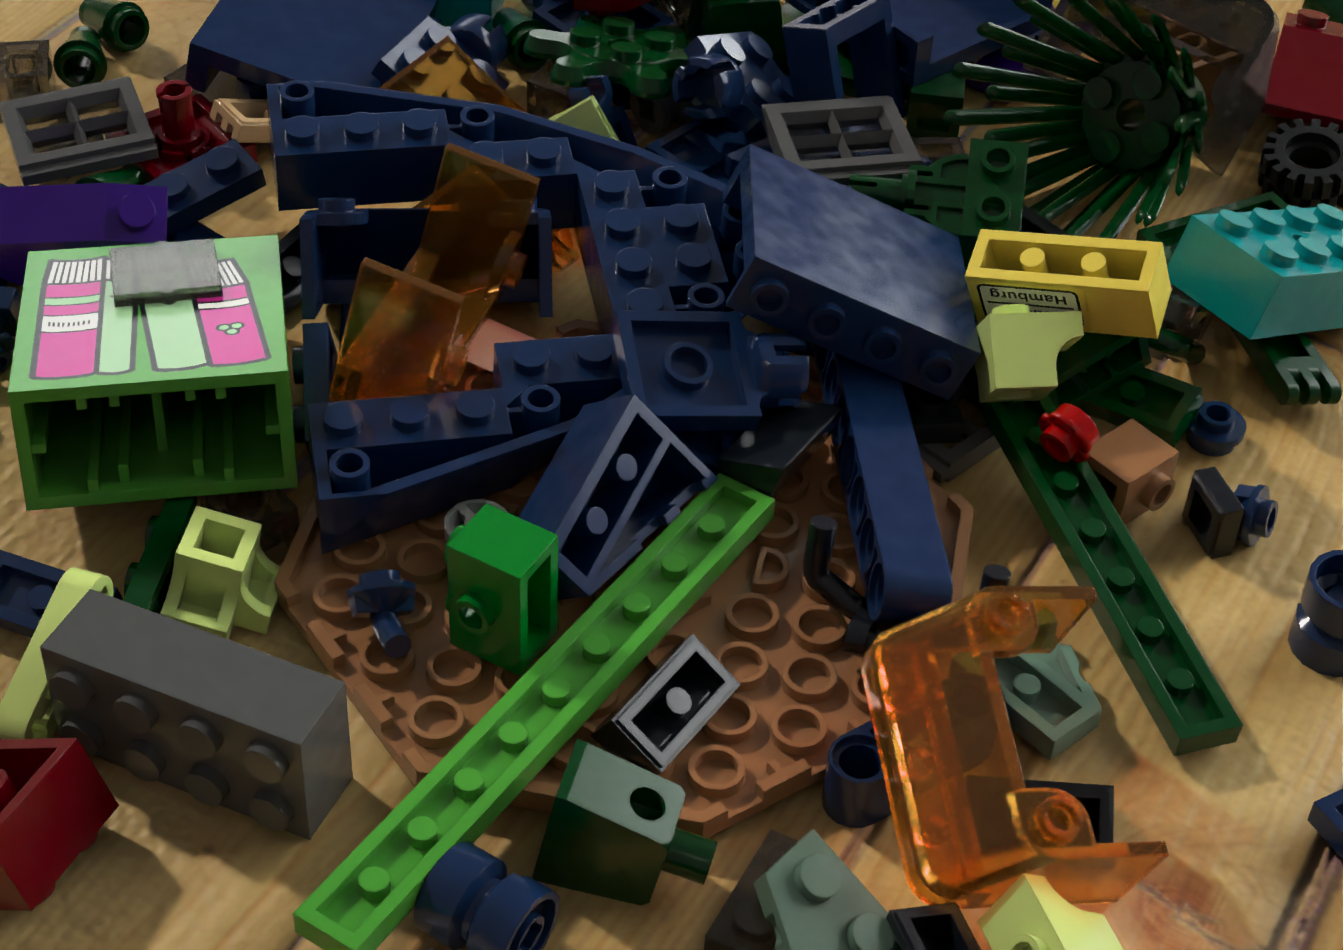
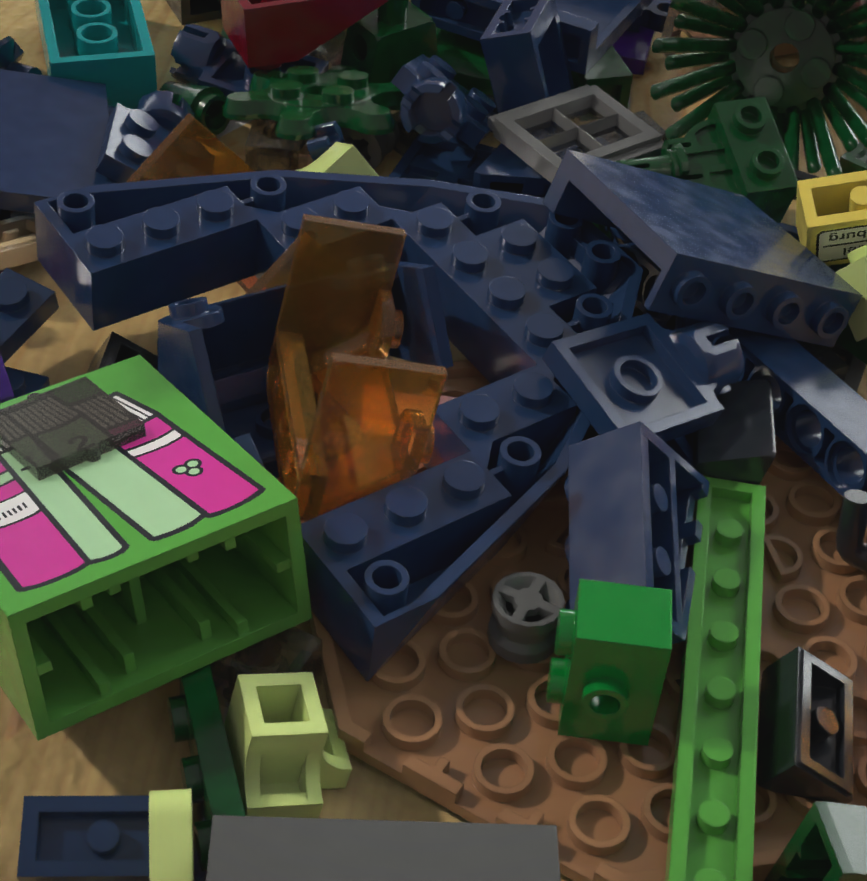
camera: 25 degrees left, 0 degrees up
(382, 599) = (474, 713): dark blue plate -> none

